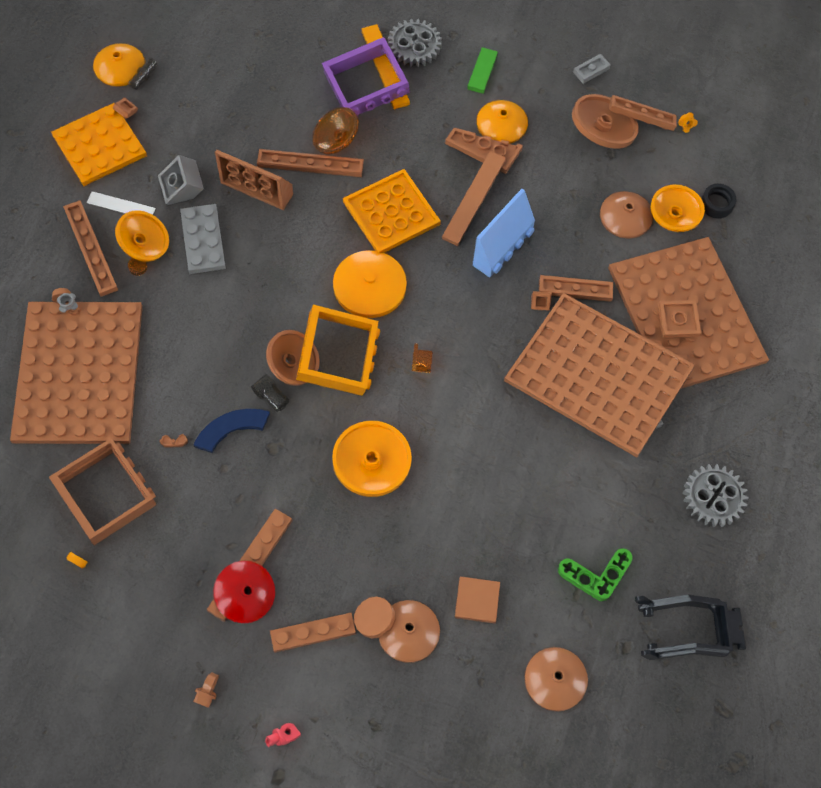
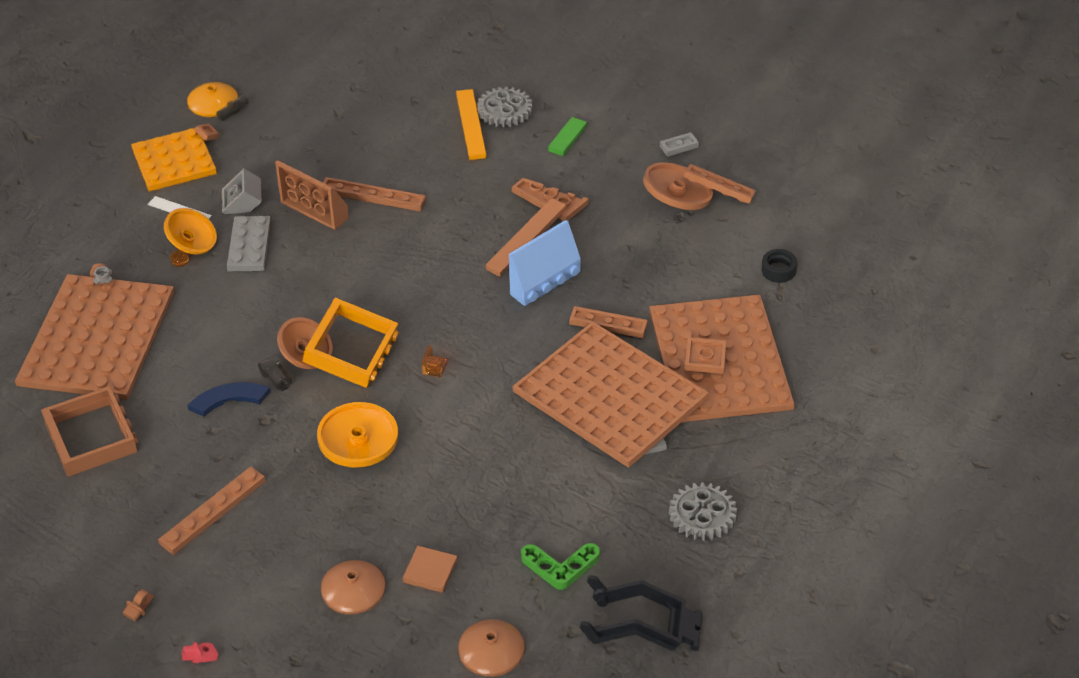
camera: 15 degrees right, 20 degrees down
(76, 560) = (46, 483): light orange tile -> none
(90, 248) = (139, 239): nougat plate -> none
(180, 441) = (166, 402): nougat piece -> none
(230, 594) = (194, 538): red dish -> none
(312, 632) = (256, 574): nougat plate -> none
(335, 130) = (403, 168): clear orange dish -> none
(357, 57) = (442, 112): medium lavender window -> none
(369, 284) = (402, 296): light orange dish -> none
(374, 617) = (320, 566): nougat tile -> none
(391, 211) = (440, 240): light orange plate -> none
(502, 121) = (576, 178): light orange dish -> none
(540, 300) = (569, 327): nougat slope -> none
(625, 221) = (681, 269): nougat dish -> none
(678, 201) = (731, 264): light orange dish -> none
(684, 119) = (766, 192): light orange plate -> none

